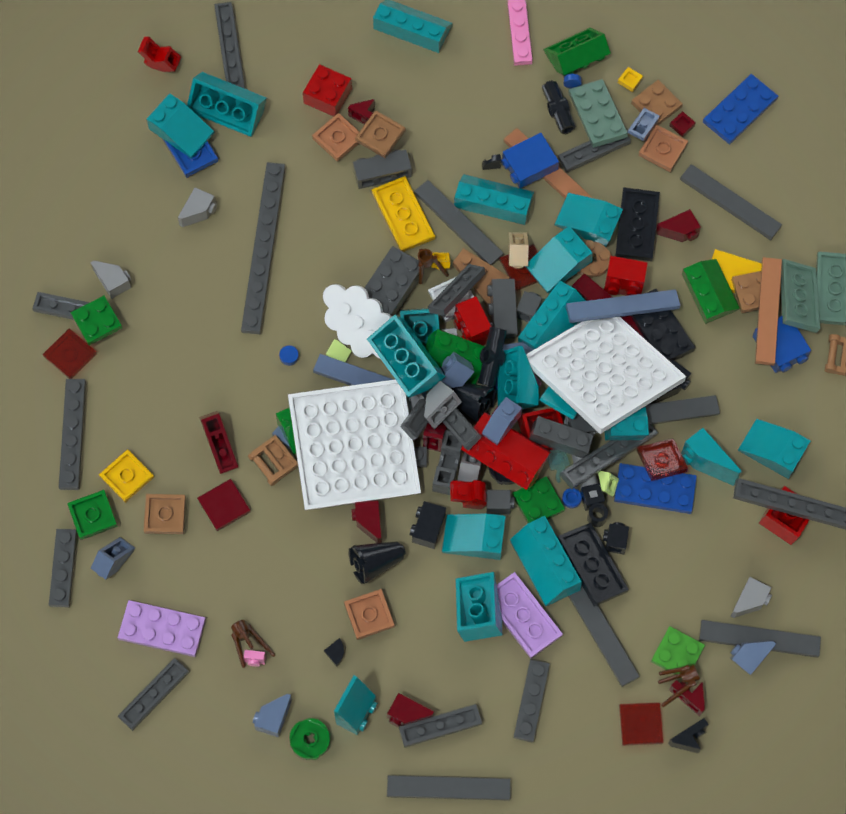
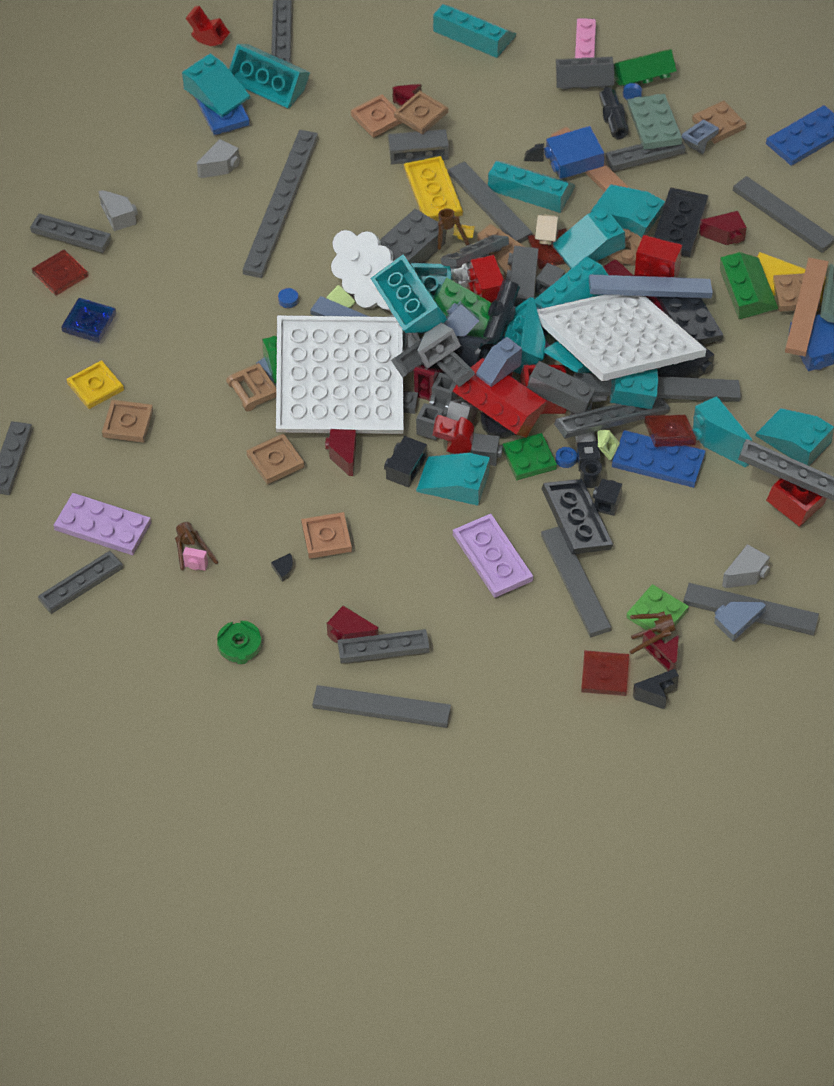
camera: 10 degrees right, 15 degrees down
(72, 434) = (46, 342): dark grey plate -> none
(92, 514) = (51, 413): green plate -> none
(96, 320) = (93, 242): green plate -> none
(107, 405) = (88, 320): none -> clear blue plate
(112, 557) = (62, 452): sand blue slope -> none
(218, 442) = (197, 362): dark red slope -> none
(223, 505) = (191, 421): dark red tile -> none
(272, 716) = (204, 614): sand blue slope -> none
(308, 537) = (275, 458): none -> medium nougat plate
(327, 90) = (374, 74): red brick -> none
(355, 706) = (292, 609): teal slope -> none
(374, 559) = (342, 483): black cone -> none
(478, 607) = (444, 540): teal slope -> none
(525, 65) = (584, 72): none -> dark grey brick
(531, 701) = (487, 637): dark grey plate -> none
(546, 561) = (527, 507): teal slope -> none
(558, 461) = (551, 415): clear light blue plate -> none
(630, 79) = (694, 97): yellow plate -> none
(663, 148) = (718, 159): nougat plate -> none
(682, 124) = (743, 140): dark red plate -> none

